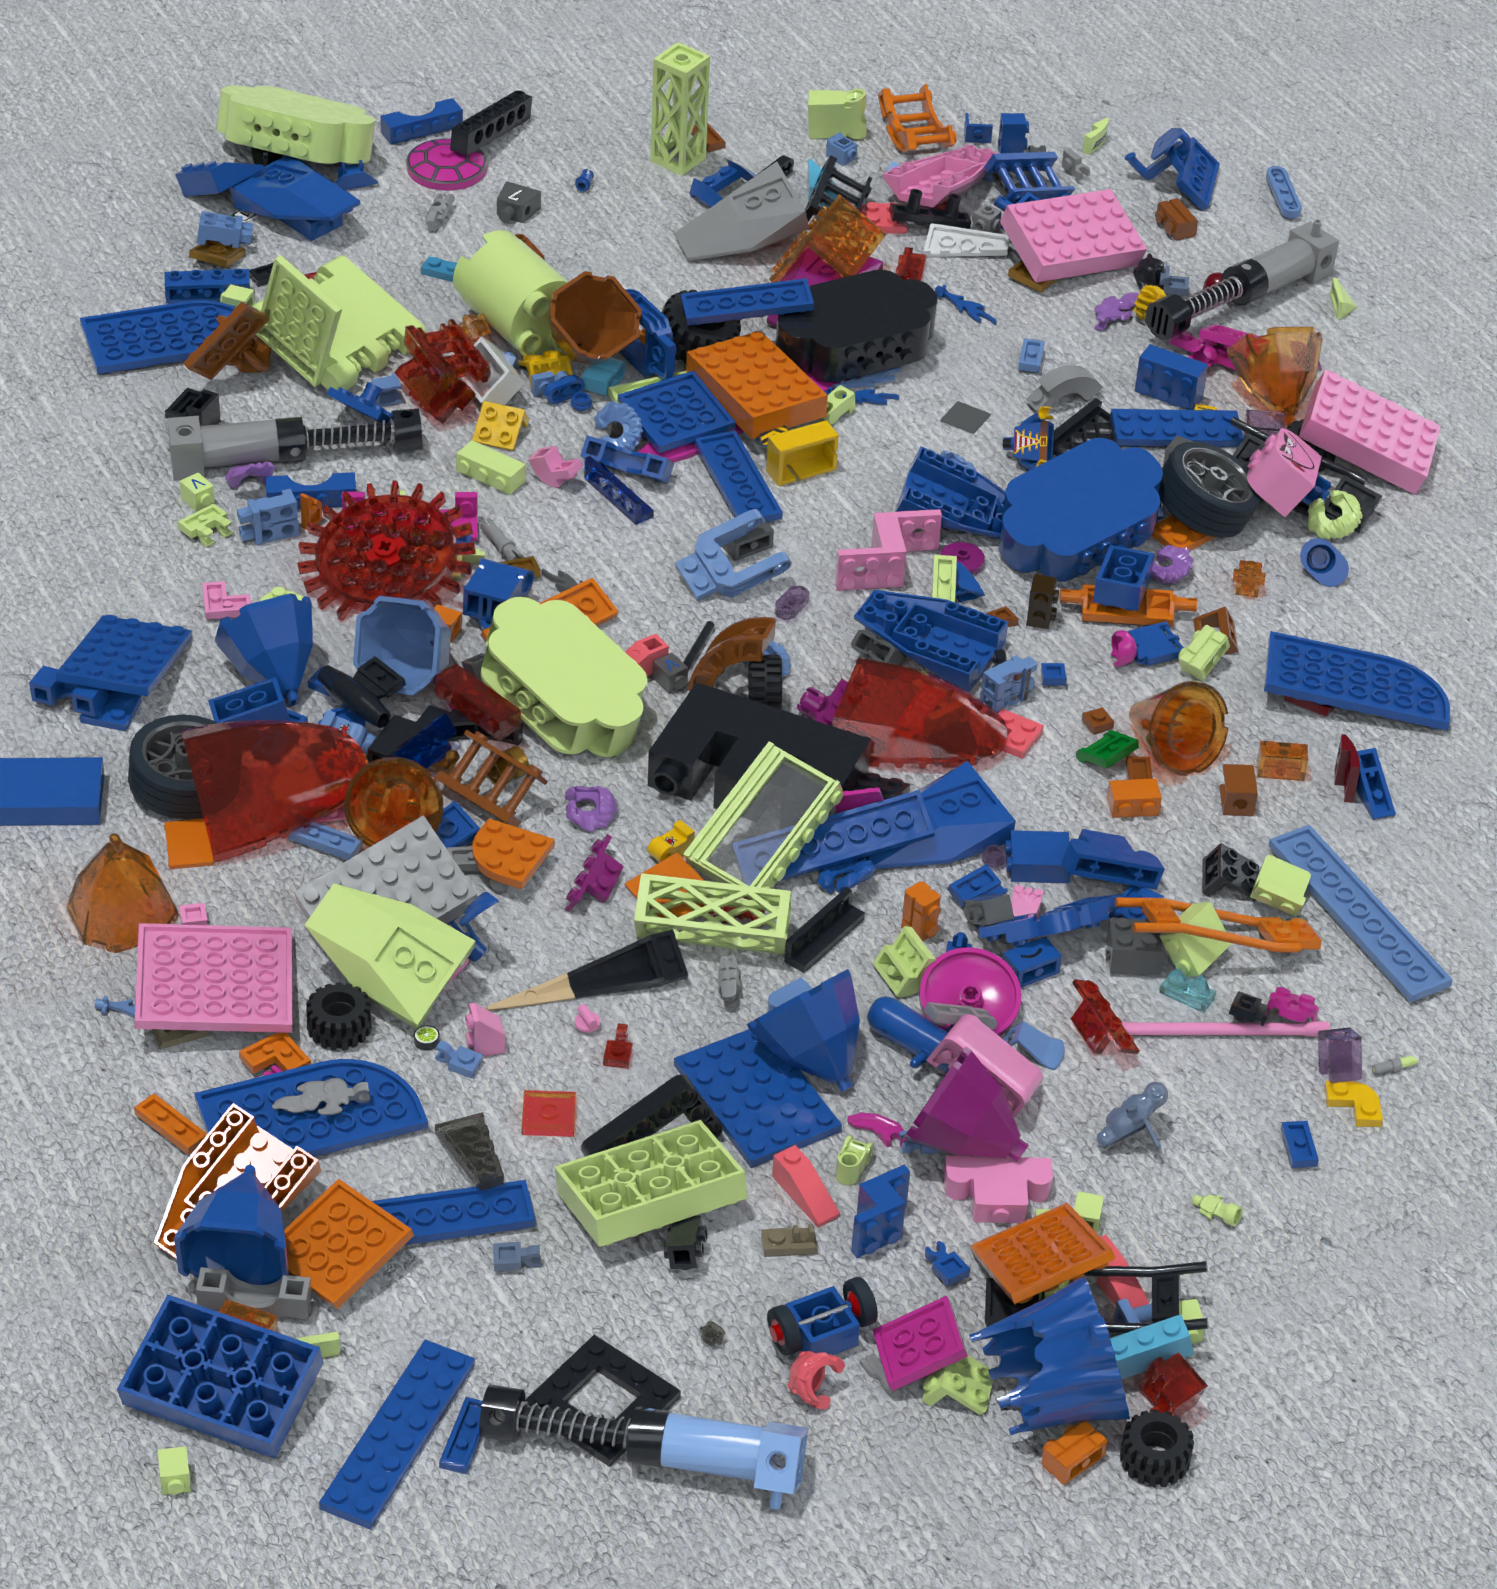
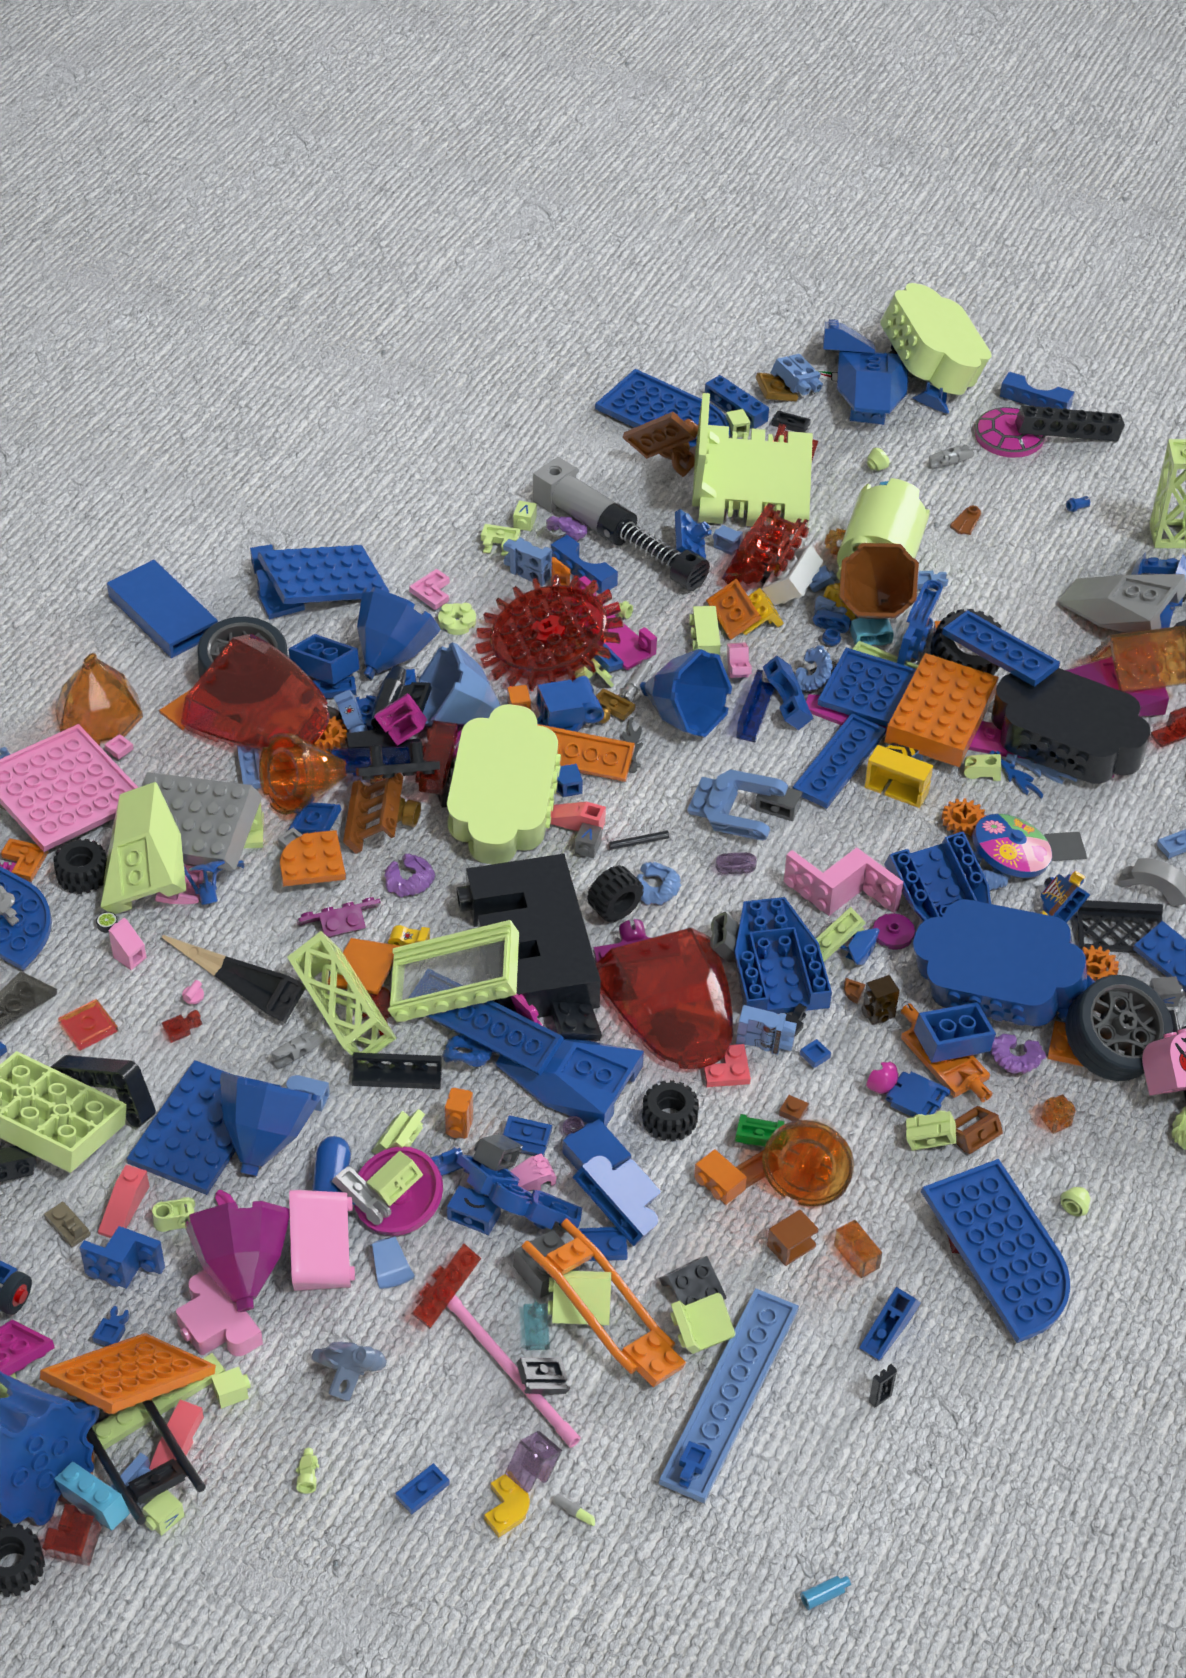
camera: 55 degrees right, 5 degrees up
(196, 403) = (598, 469): black plate -> none
(393, 250) = (877, 459): none -> yellowish green cone
(410, 693) = (401, 719): none -> dark pink plate
(459, 1061) = (100, 952): medium blue plate -> none
(480, 730) = (377, 766): none -> black plate
(485, 428) = (734, 609): none -> orange tile
(517, 202) = (1006, 486): dark grey torso -> none
(565, 513) = (690, 692): none -> blue piece
(735, 644) = (603, 854): dark orange fence -> none
(880, 448) = (962, 816): none -> orange gear
(945, 438) = (1012, 845): none -> dish
(965, 981) = (395, 1178): none -> yellowish green hinge
(1037, 787) = (672, 1096): none -> black tyre
(1292, 1005) = (578, 1393): dark pink plate -> none
(1324, 562) = (1131, 1151): blue piece -> none
(1343, 620) = (1076, 1201): none -> yellowish green cone
(1347, 768) = (879, 1296): dark red slope -> none
(1418, 960) = (693, 1460): none -> blue plate
(1434, 817) = (881, 1385): none -> black tile

